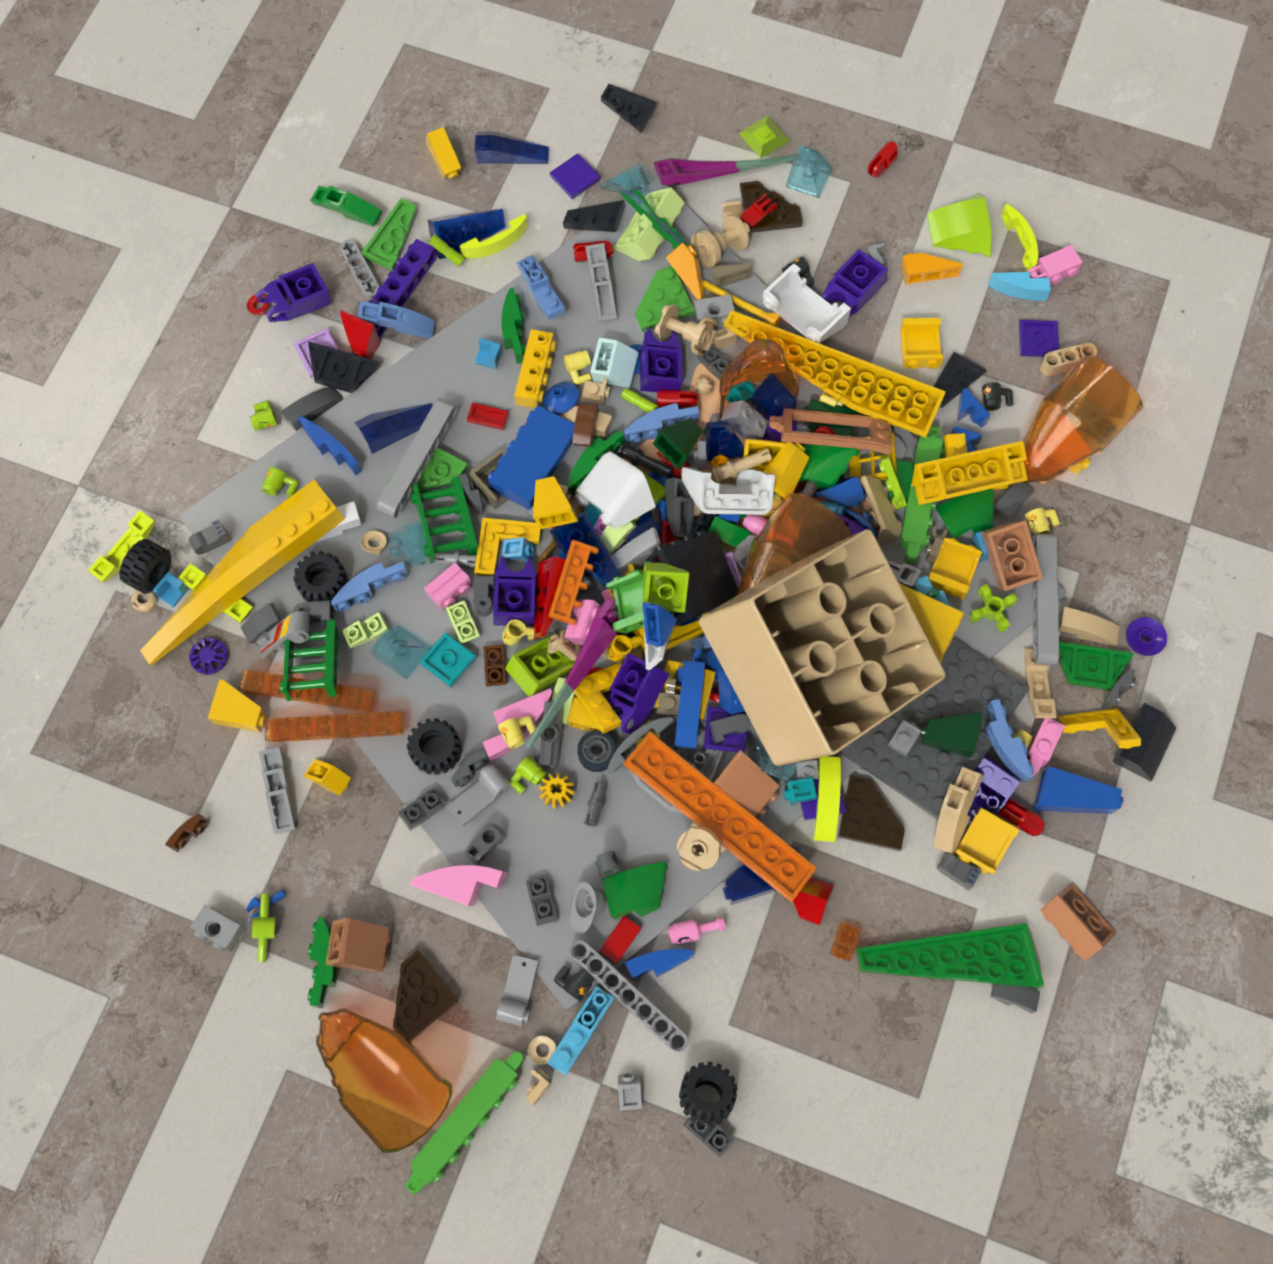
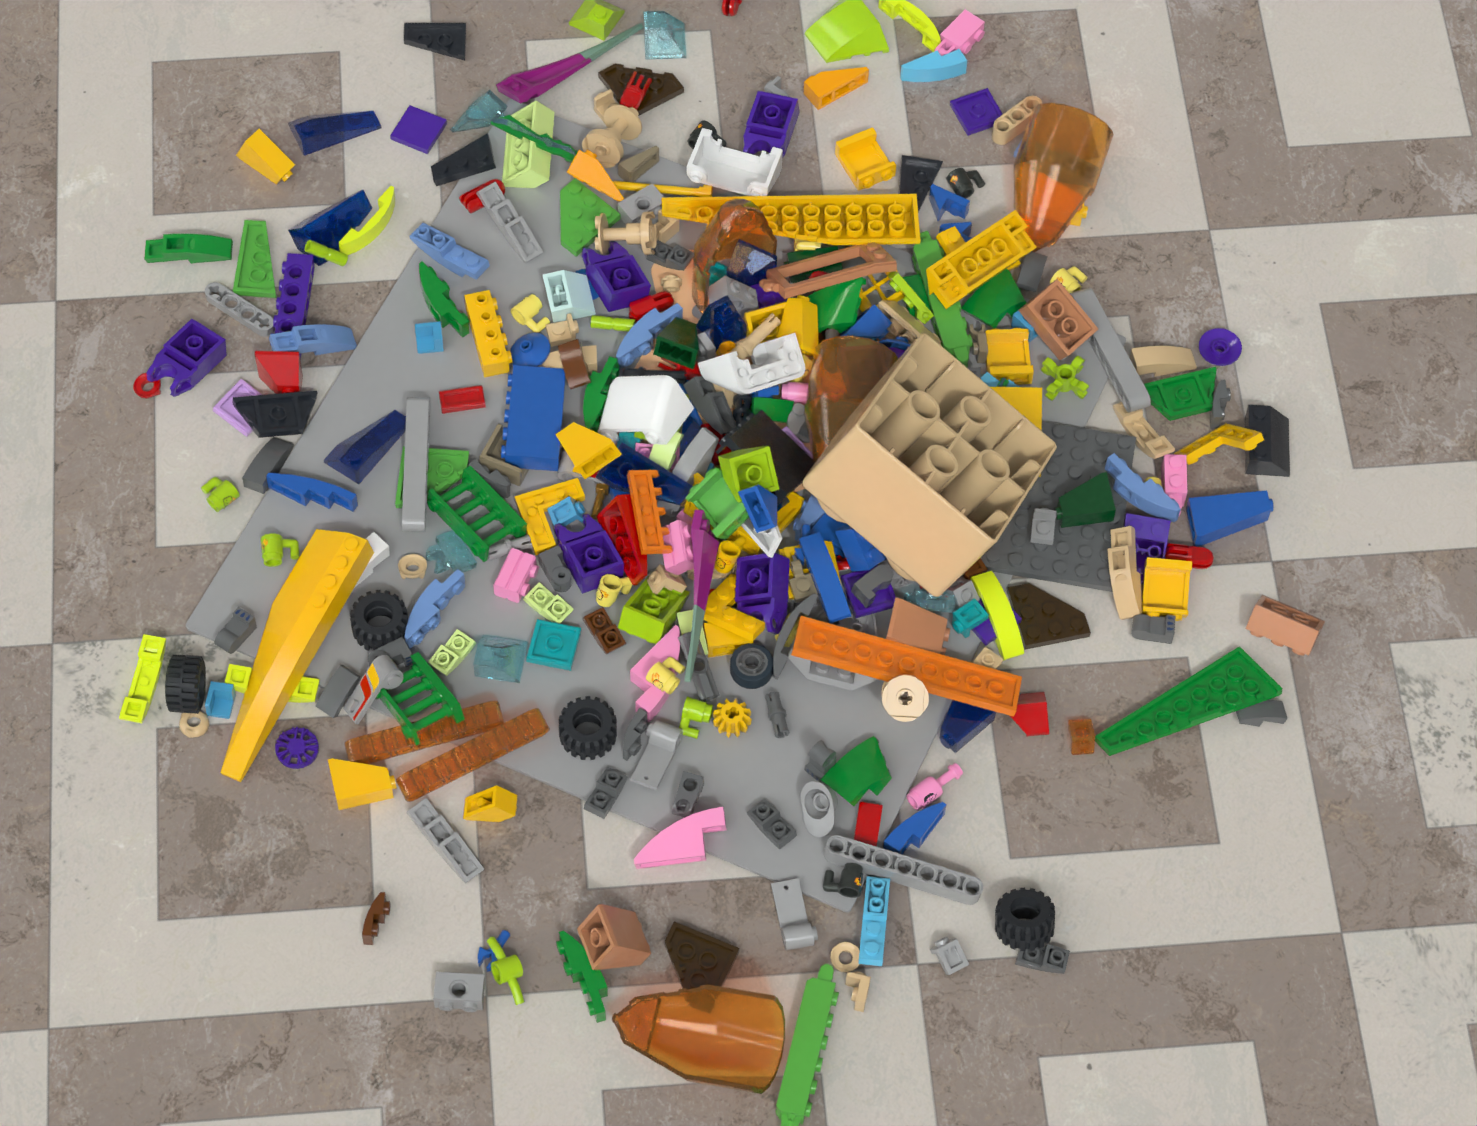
camera: 30 degrees left, 10 degrees down
(795, 838) = (988, 659): none -> tan bracket

